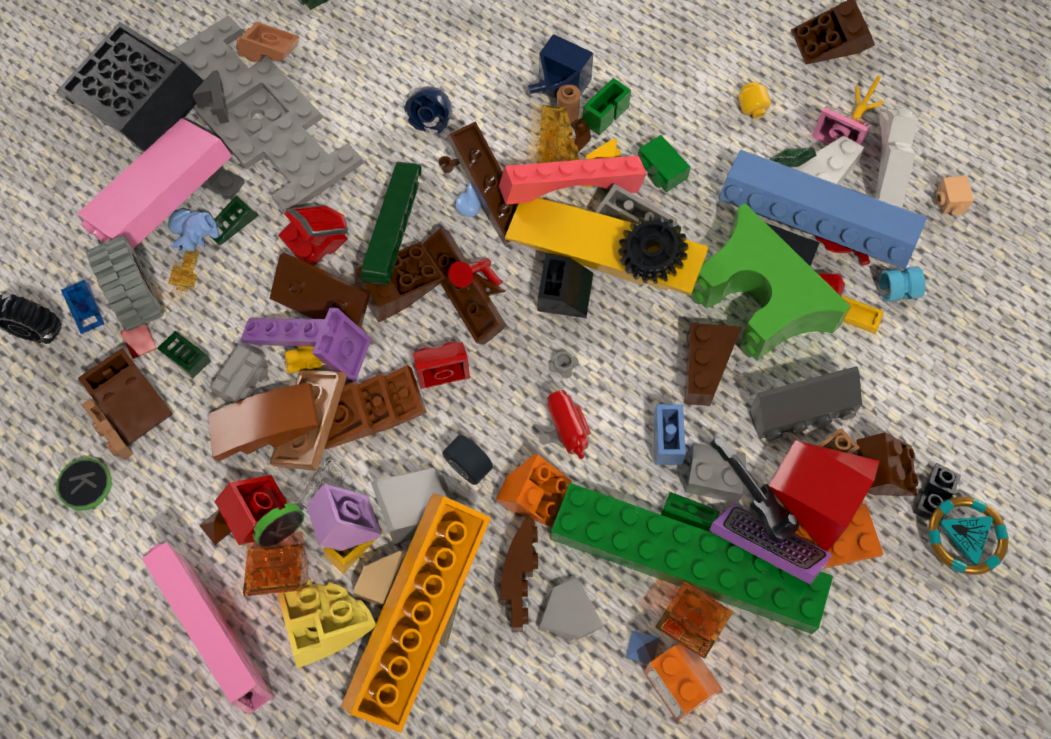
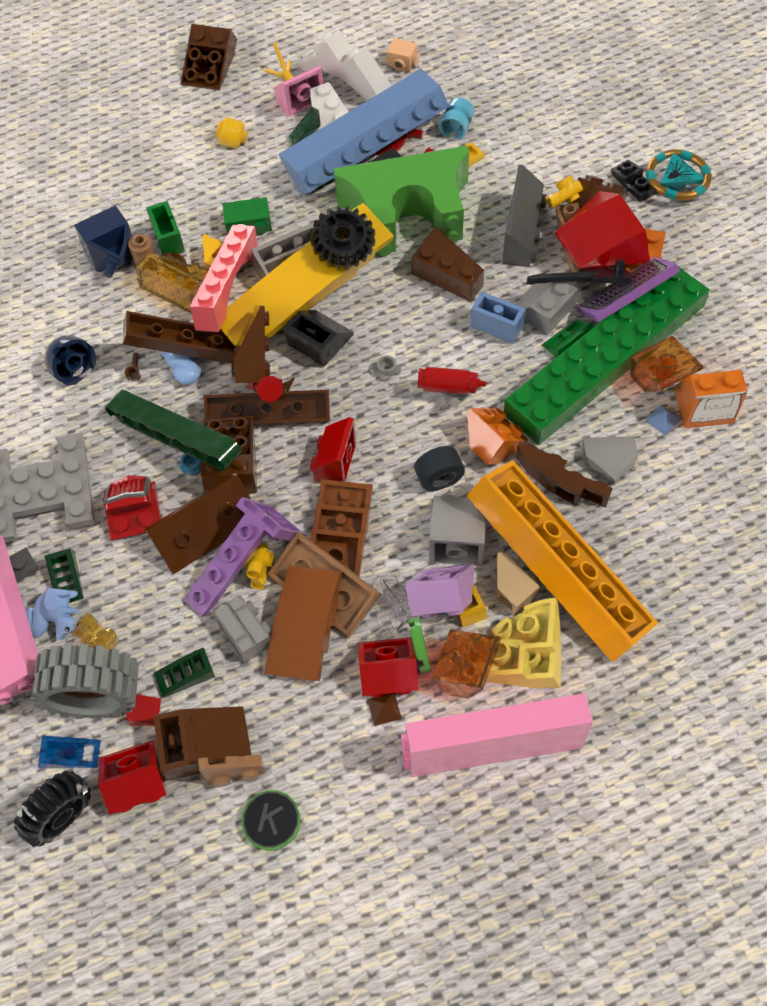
camera: 60 degrees left, 5 degrees down
(71, 357) = (131, 777): none -> red slope
(494, 243) = (248, 356): none -> reddish brown slope
(860, 428) = (567, 190): none -> yellow plate

